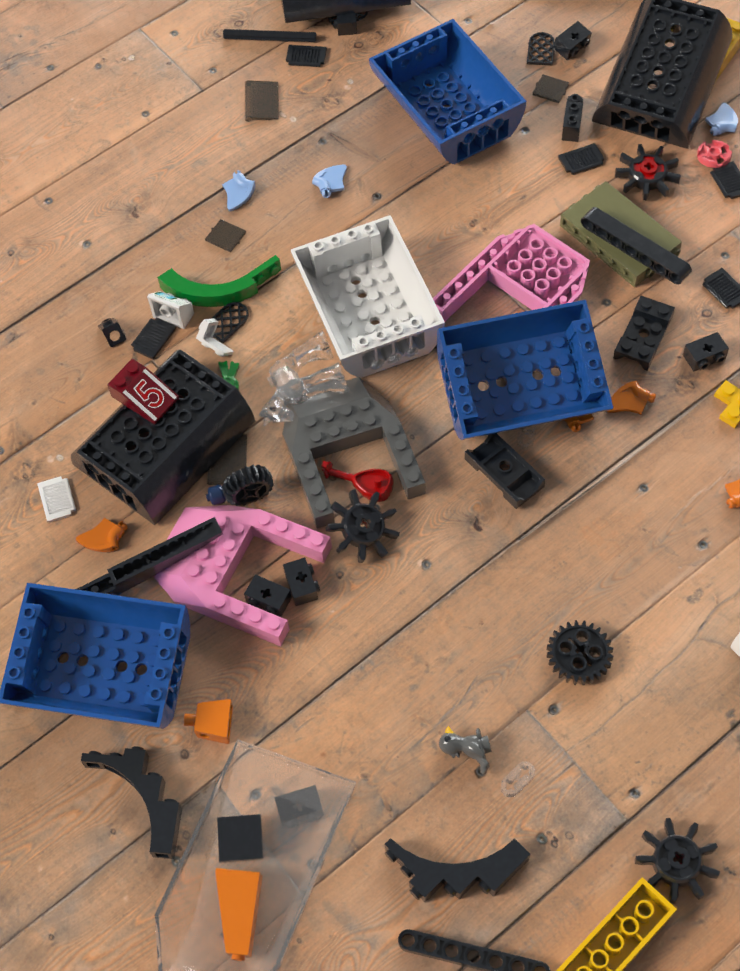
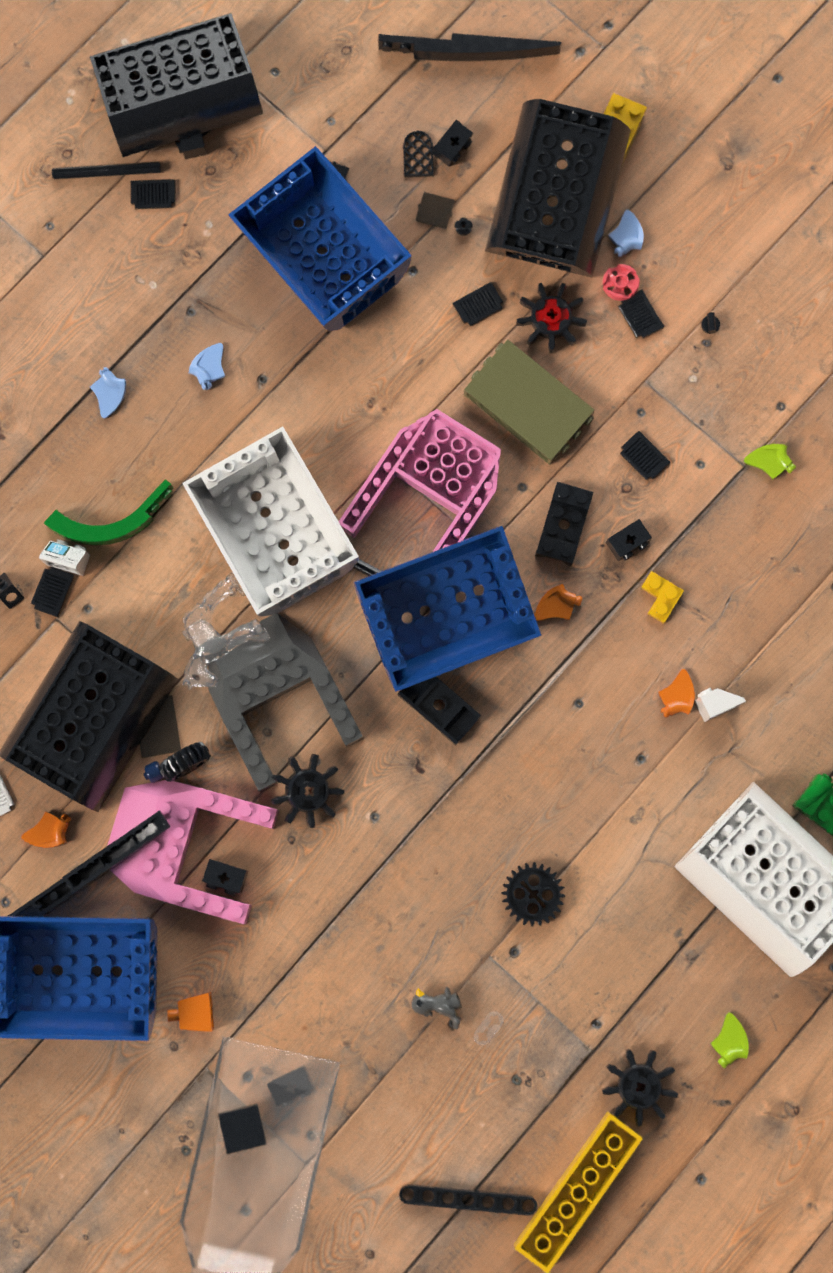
camera: 10 degrees left, 20 degrees up
(142, 391) = (60, 685): dark red slope -> none
(163, 815) = (166, 1113): black arch -> none
(205, 335) = (115, 591): white bracket -> none
(225, 235) = (105, 452): clear smoke piece -> none
(229, 375) = (142, 641): green piece -> none
(238, 325) = (119, 549): black window -> none
(239, 906) = (252, 1193): orange slope -> none
(261, 100) = (113, 264): clear smoke piece -> none
(305, 591) = (246, 848): black brick -> none
(366, 481) = (309, 735): red piece -> none
(458, 878) = (418, 1134): black arch -> none
(572, 121) = (463, 258): black brick -> none
(636, 245) = (547, 424): black beam -> none

